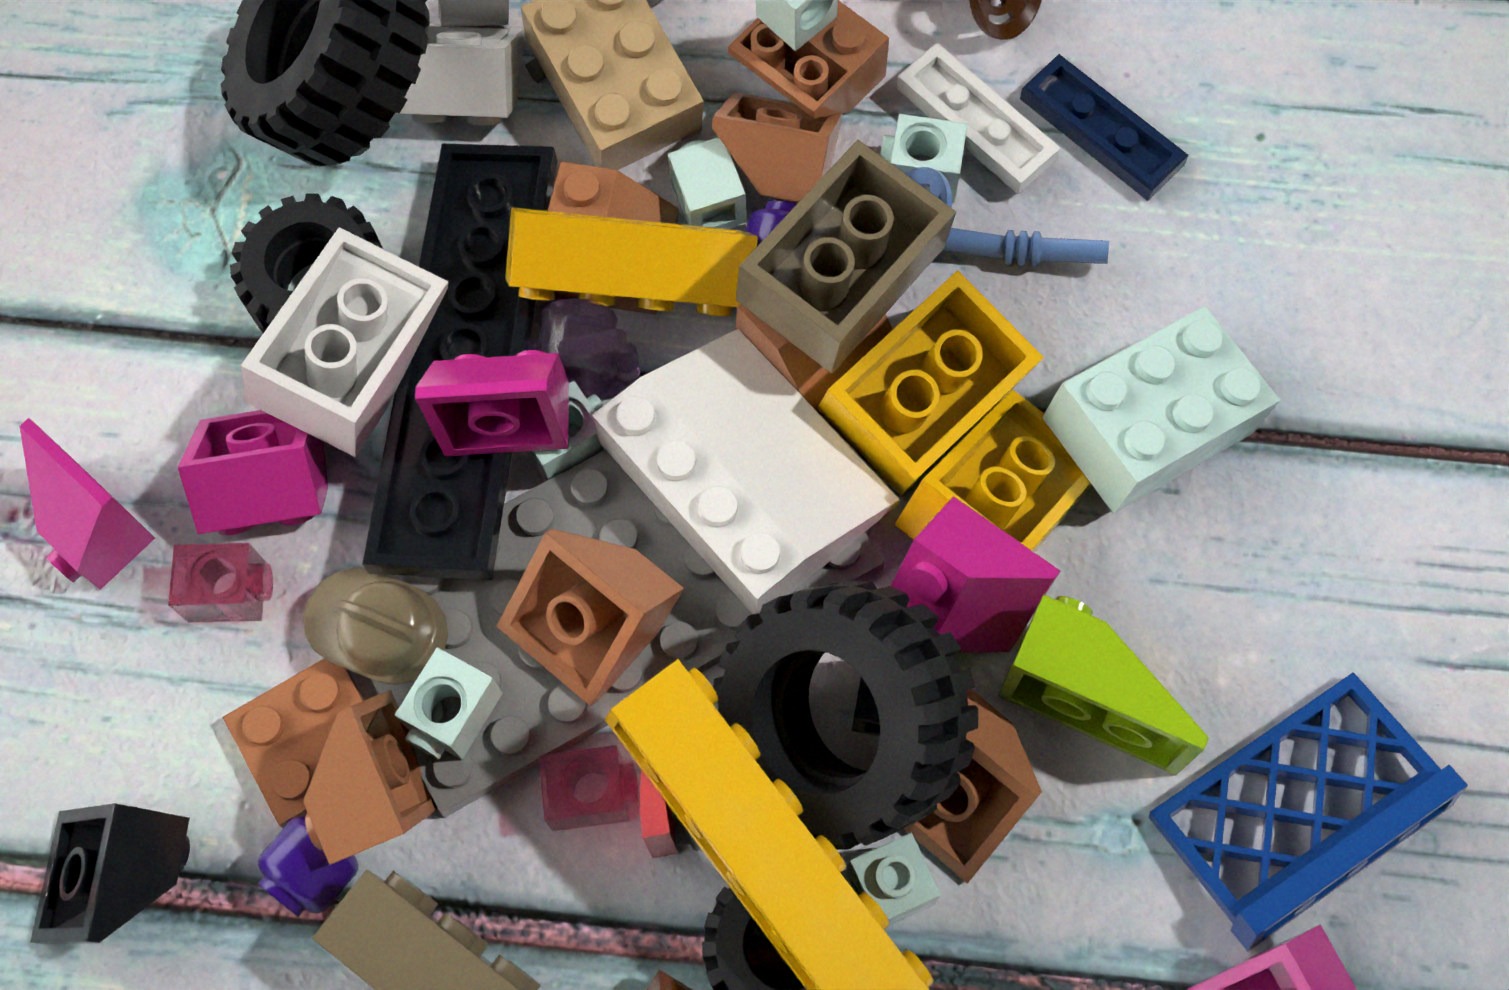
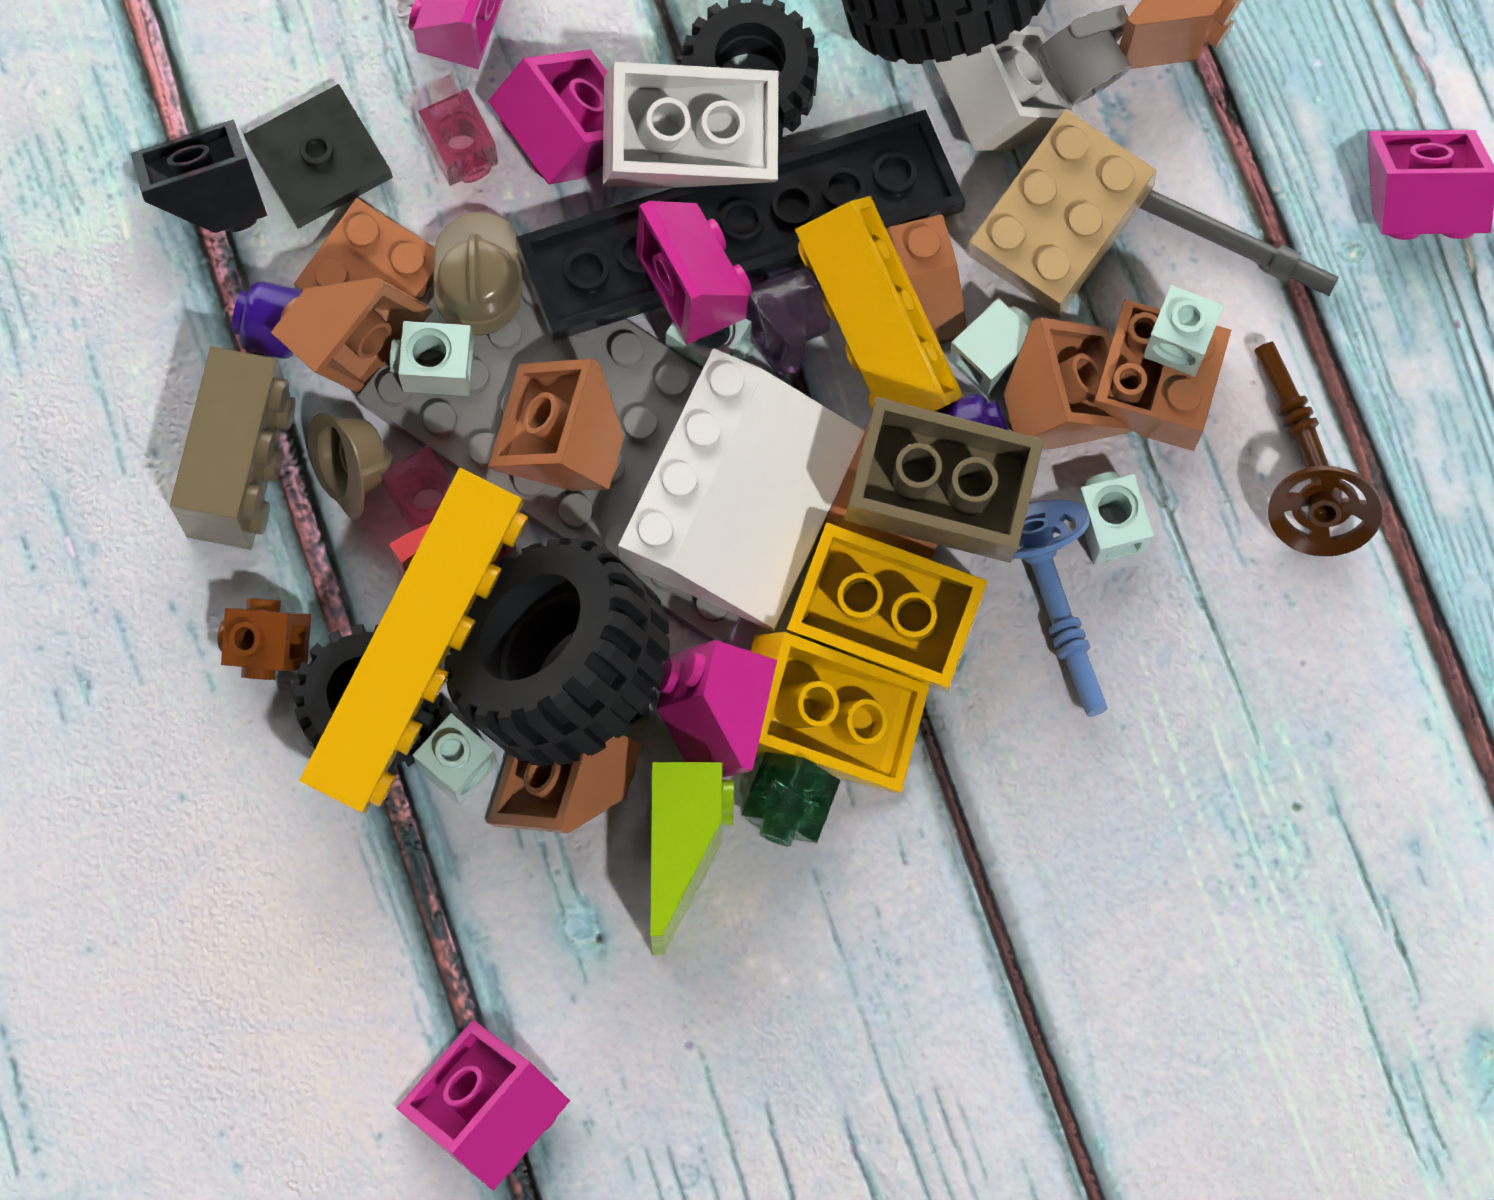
camera: 60 degrees right, 5 degrees up
(152, 738) = (318, 156): none -> pearl dark grey plate
(510, 853) = (347, 459): none -> dark tan piece
(995, 130) = (1180, 546): white plate -> none
(1090, 559) = (790, 799): none -> clear green brick
(1103, 127) = (1232, 661): dark blue tile -> none
(1159, 408) = (958, 808): light aqua brick -> none
(1338, 856) = (640, 1104): blue fence -> none

